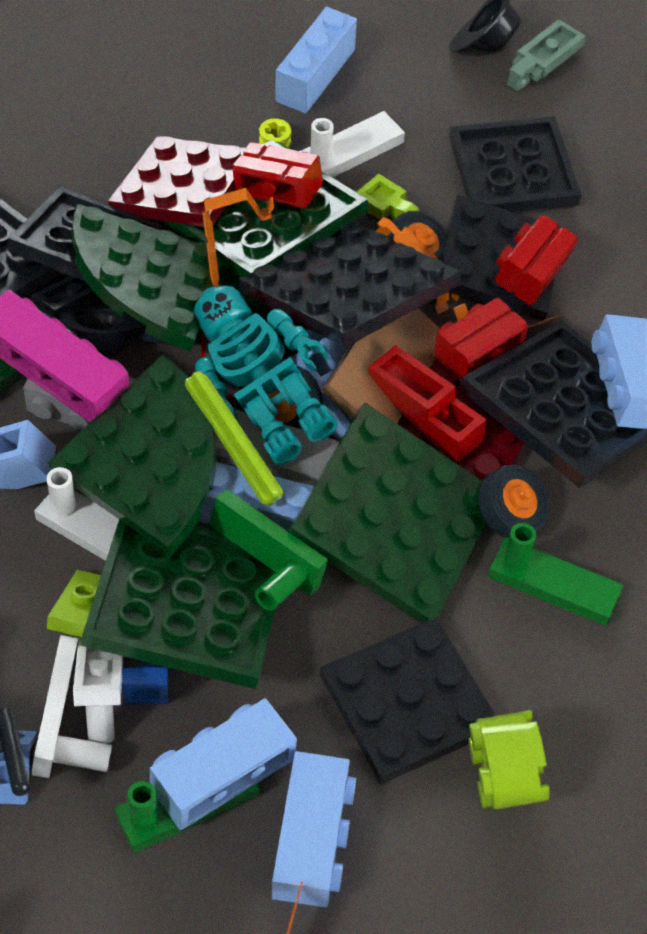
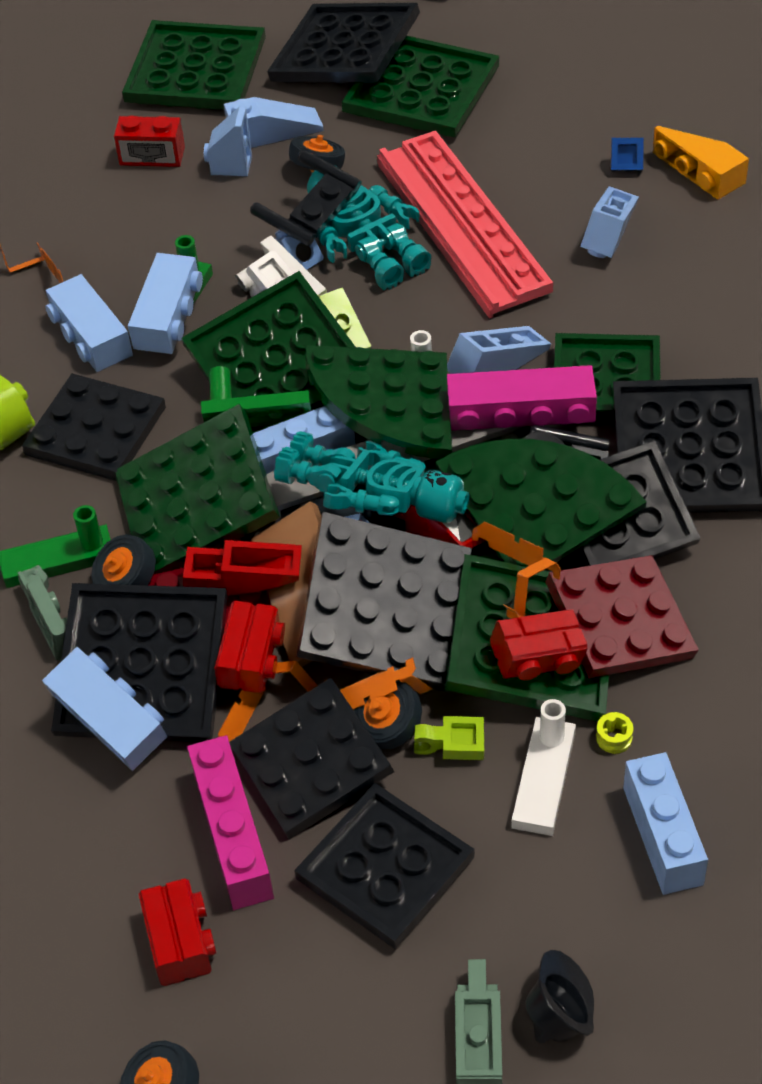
camera: 145 degrees right, 5 degrees down
(234, 439) = (339, 428): lime axle -> none
(535, 259) = (264, 742): red brick -> none
(597, 254) = (230, 823): none -> dark pink brick
(606, 524) = (44, 608): none -> sand green hinge

